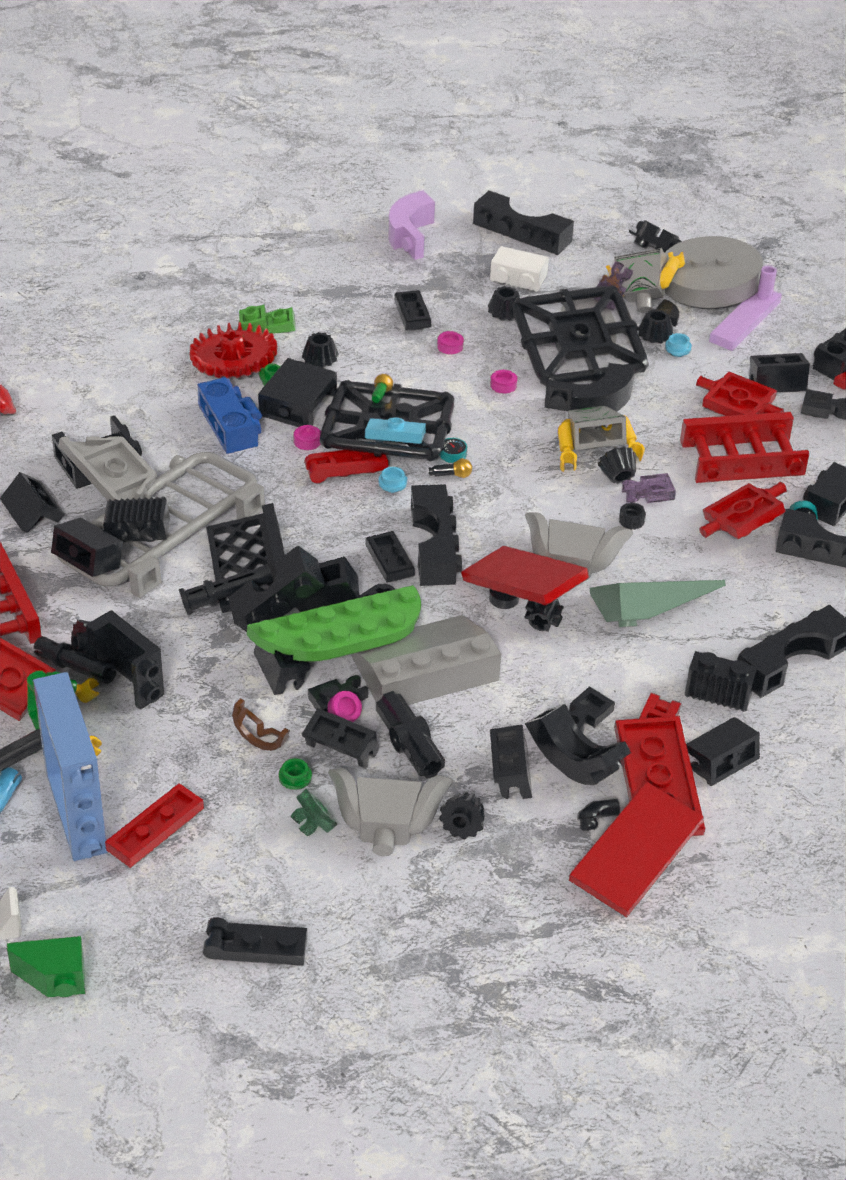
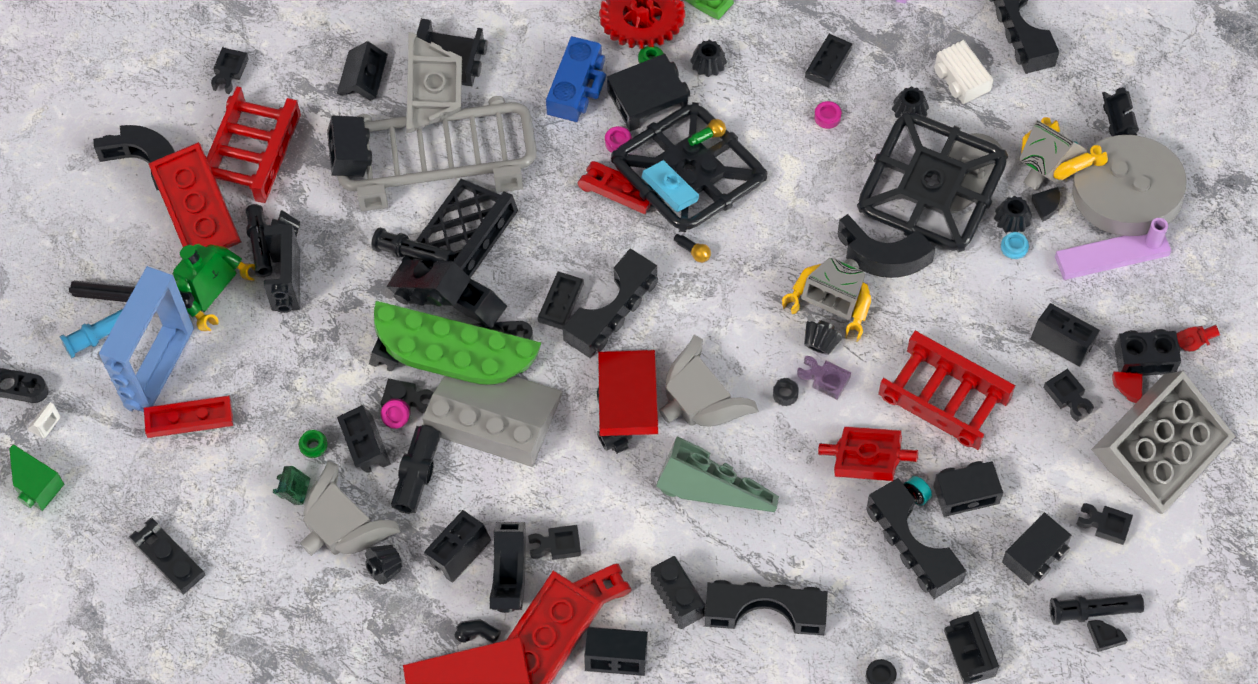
camera: 45 degrees right, 20 degrees up
(137, 519) = (402, 145): black brick -> none
(238, 715) = (315, 368): reddish brown helmet -> none
(392, 479) = (637, 228): medium azure plate -> none
(453, 450) = (715, 229): tile -> none
(503, 381) = (828, 185): dark pink tile -> none
(615, 279) = (1016, 144): plate -> none
(737, 396) = (1002, 337): red plate -> none

